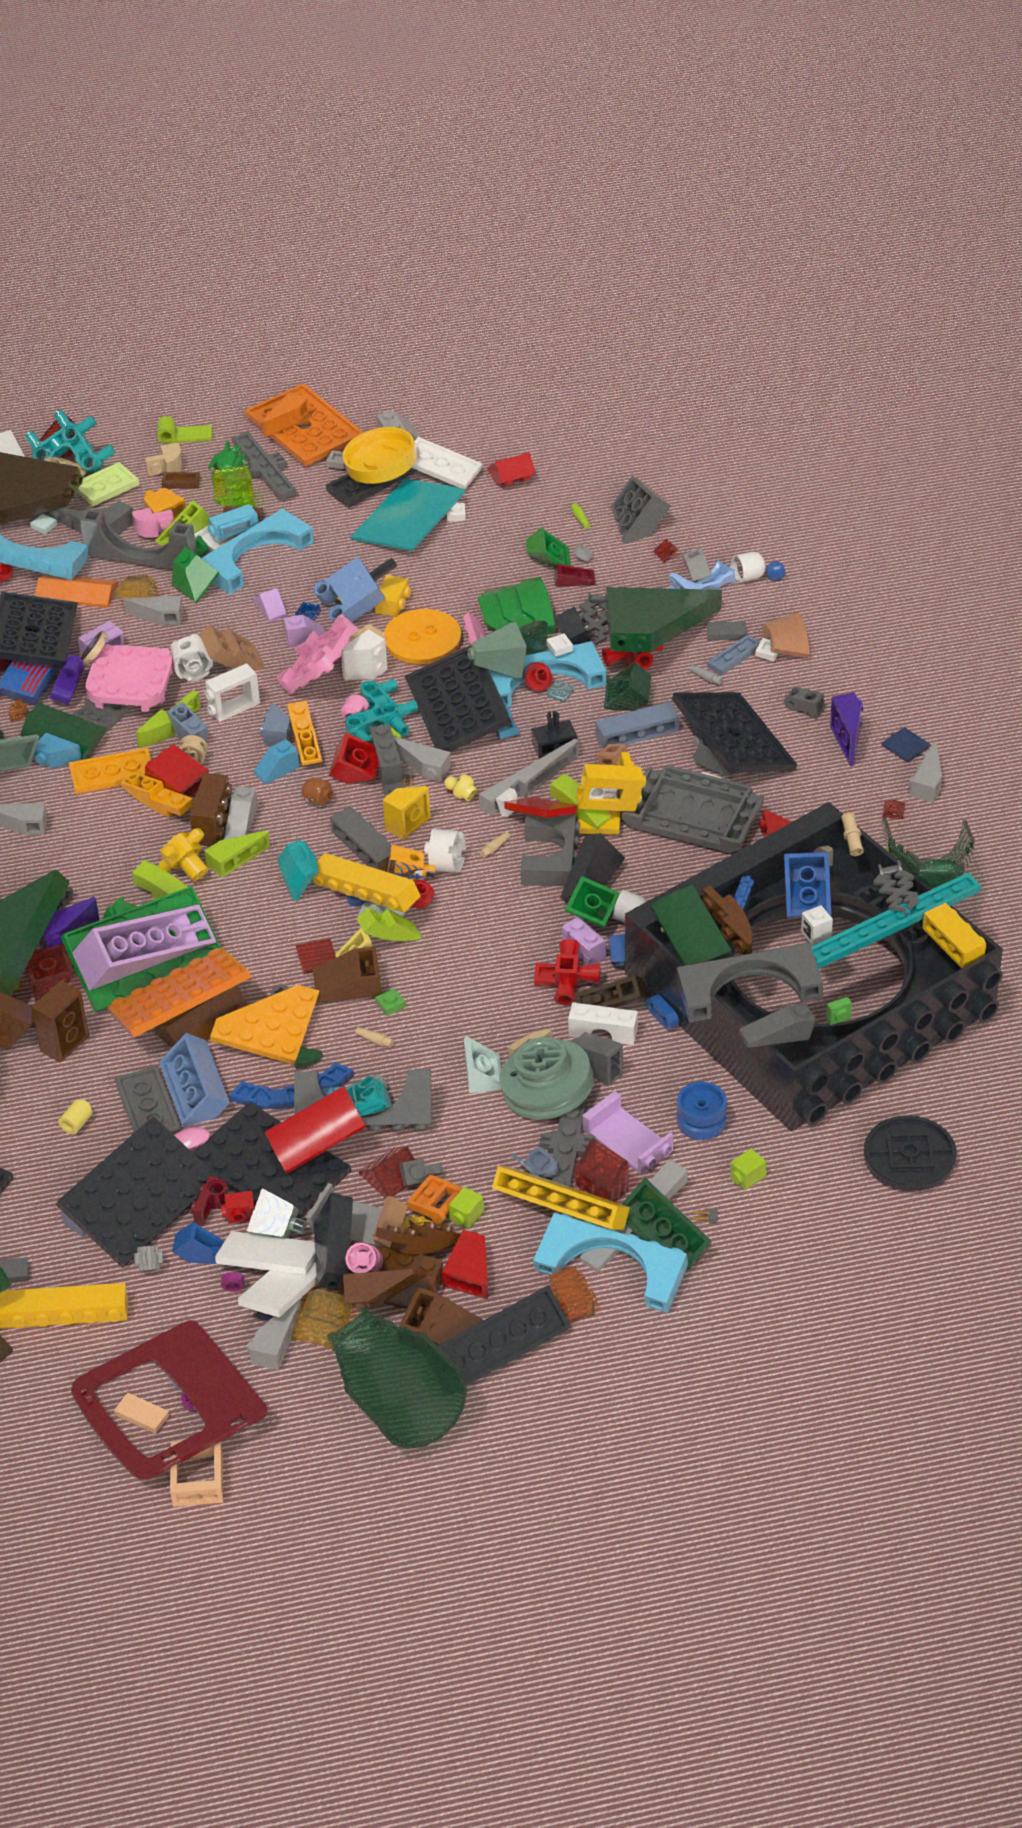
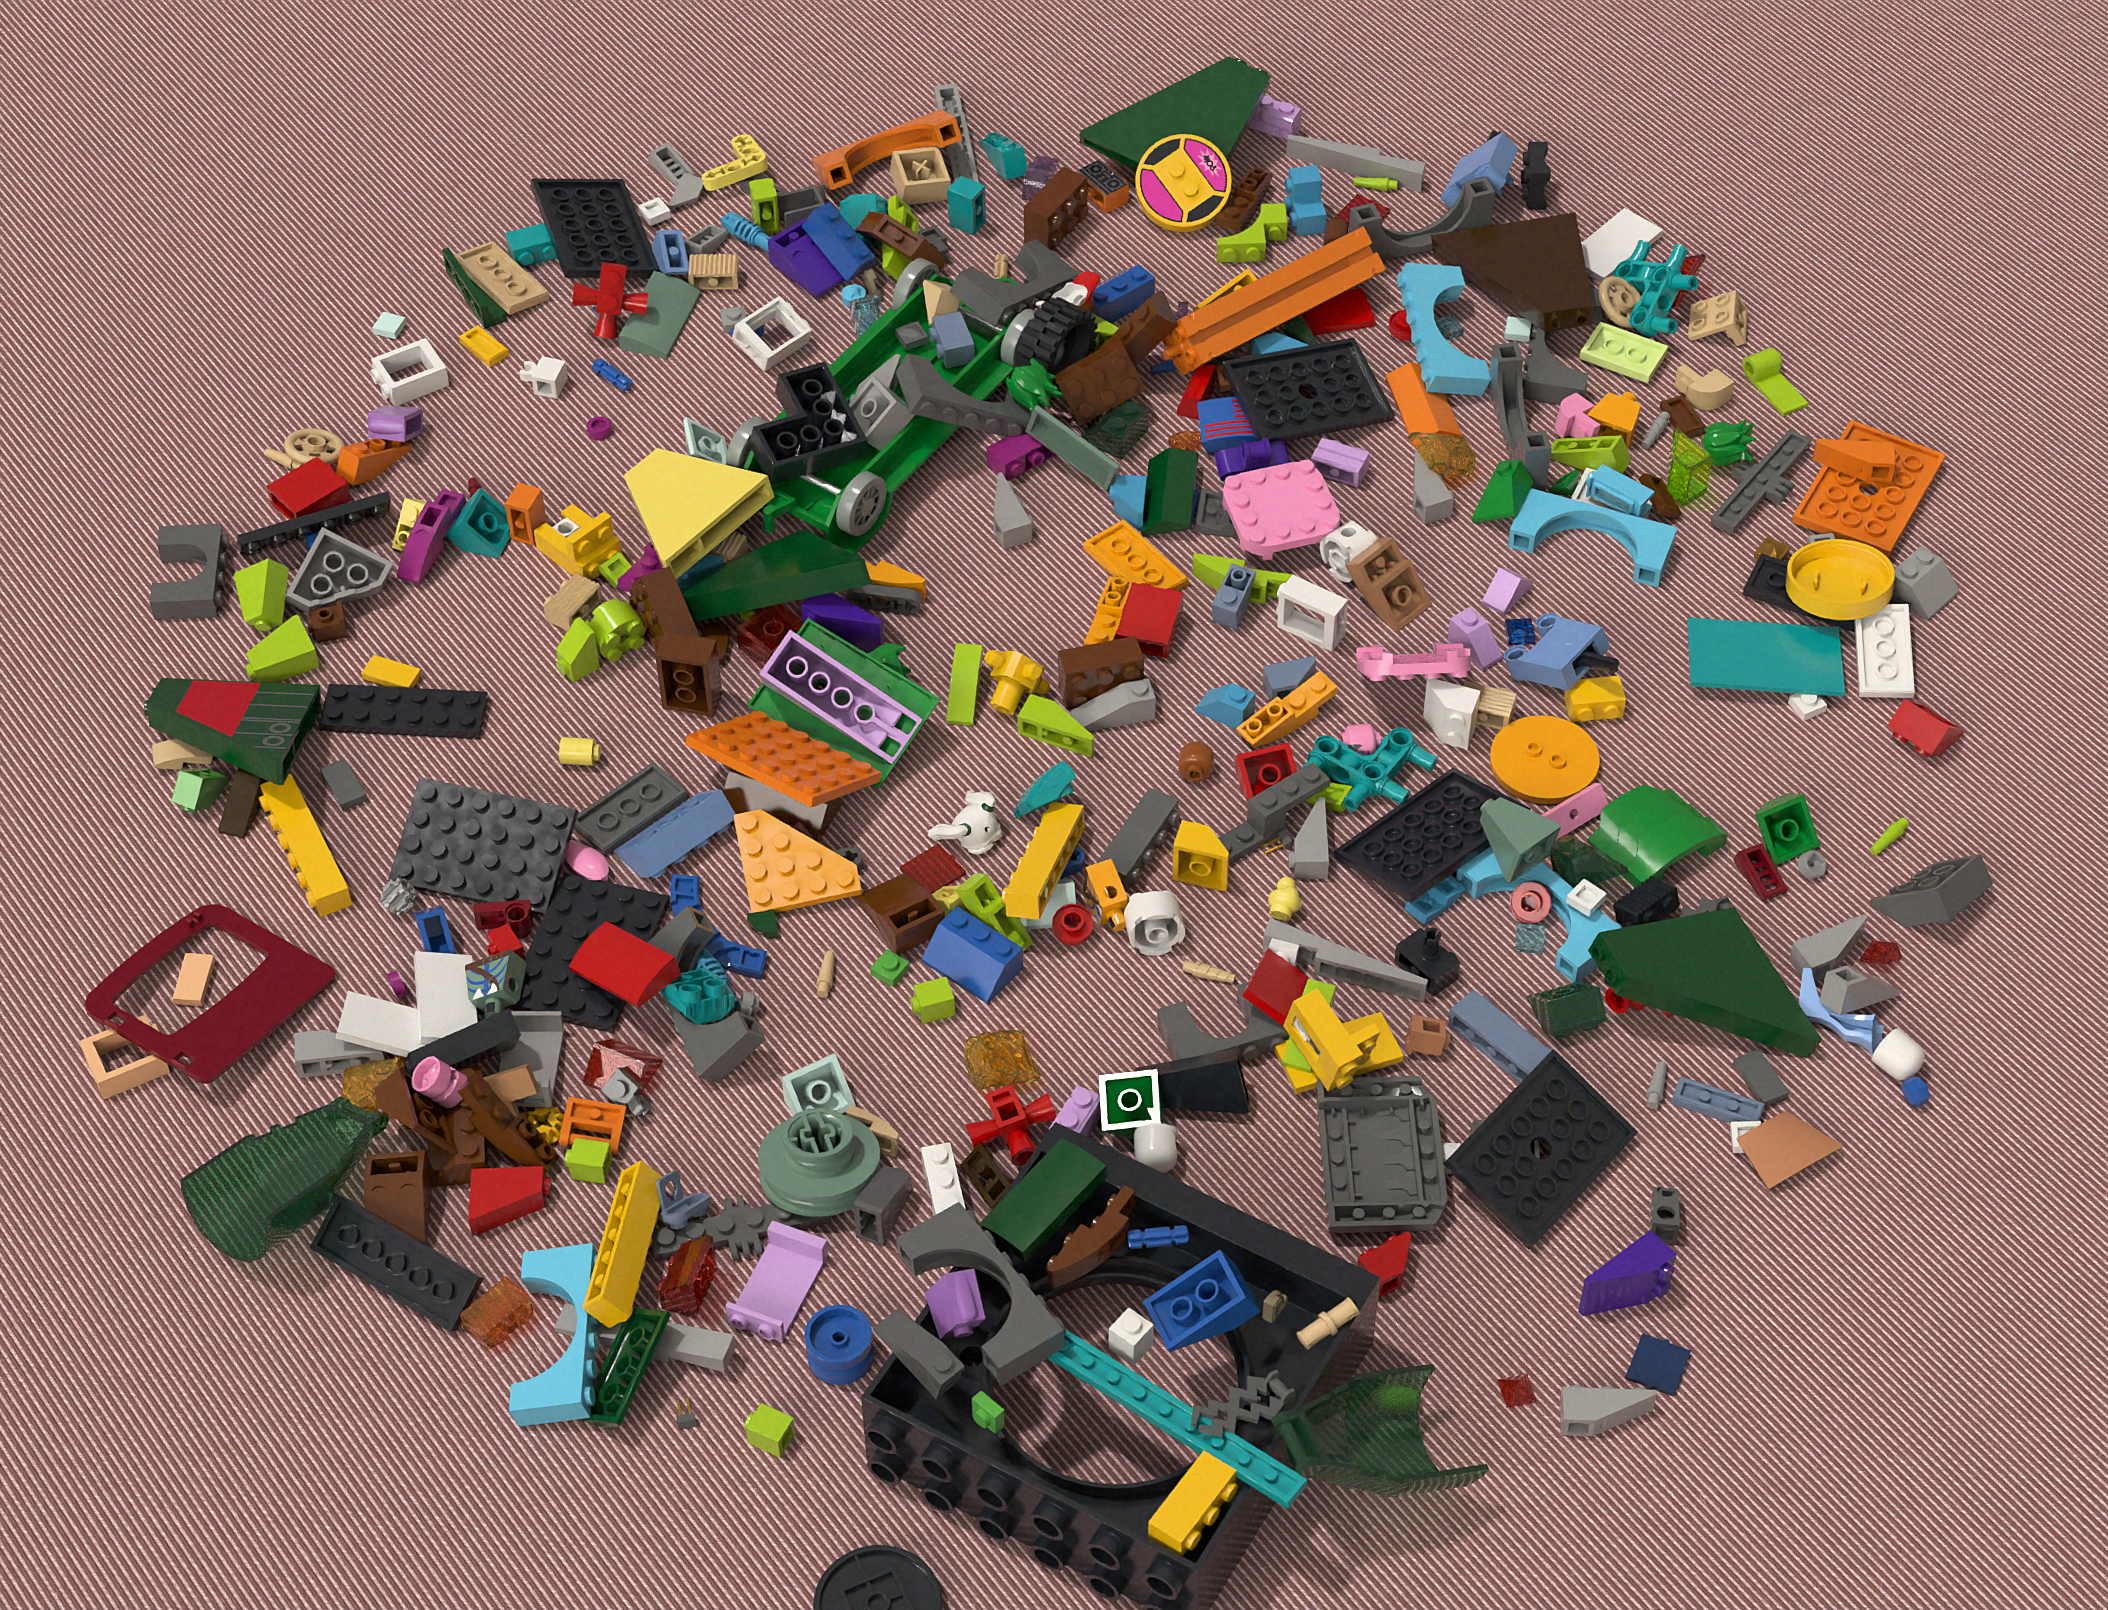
camera: 65 degrees right, 5 degrees up
(94, 647) = (1298, 455): tan tile -> none
(111, 431) = (1719, 314): none -> tan bracket
(179, 490) = (1656, 429): none -> light grey animal
(192, 747) = (1197, 618): tan wheel -> none
(297, 916) = (971, 824): none -> white hair
(321, 481) = (1772, 548): none -> pearl gold tile
(411, 952) = (973, 955): none -> blue slope
(437, 983) = (933, 1000): none -> lime brick
(508, 967) = (999, 1059): none -> clear yellow slope
(653, 567) = (1827, 948): none -> light grey slope
(755, 995) = (956, 1304): none -> medium lavender torso

